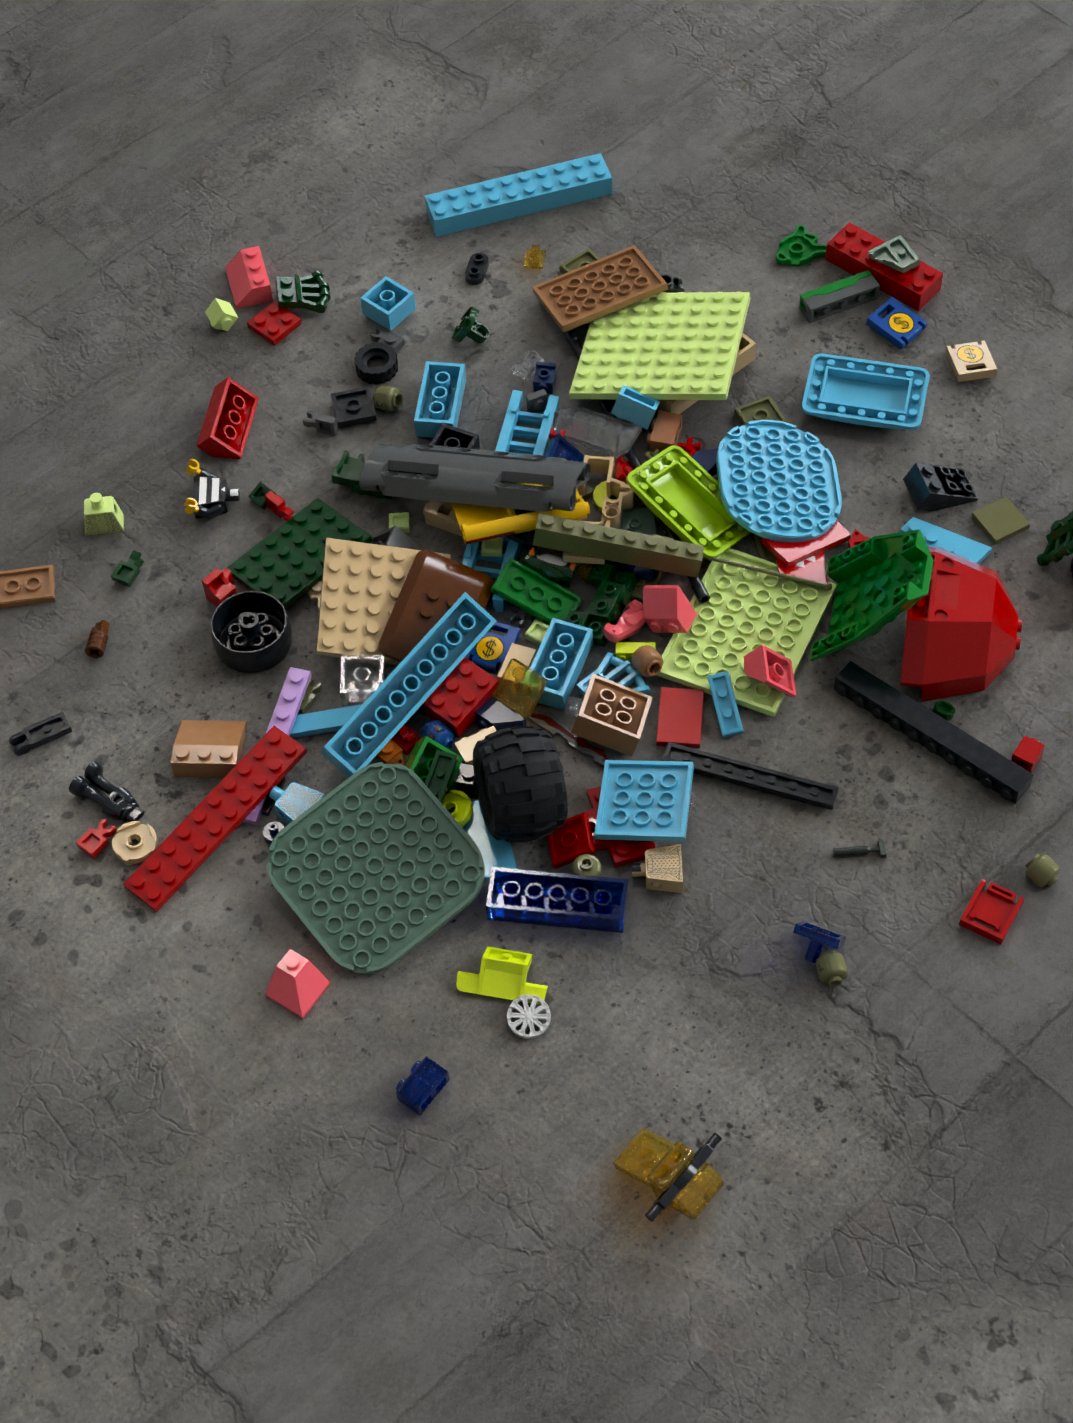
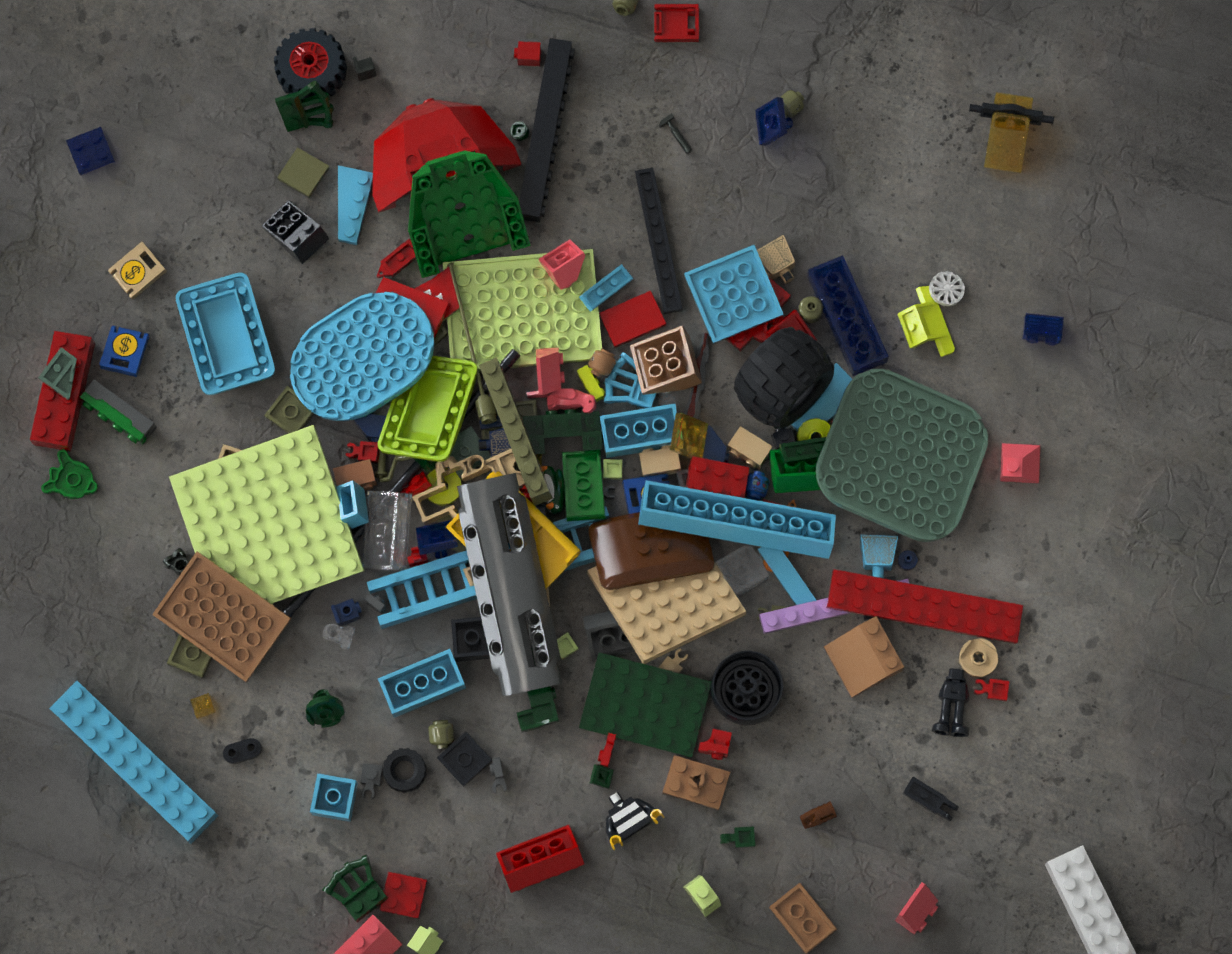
camera: 120 degrees left, 20 degrees up
(201, 561) = (696, 782): none -> medium nougat plate

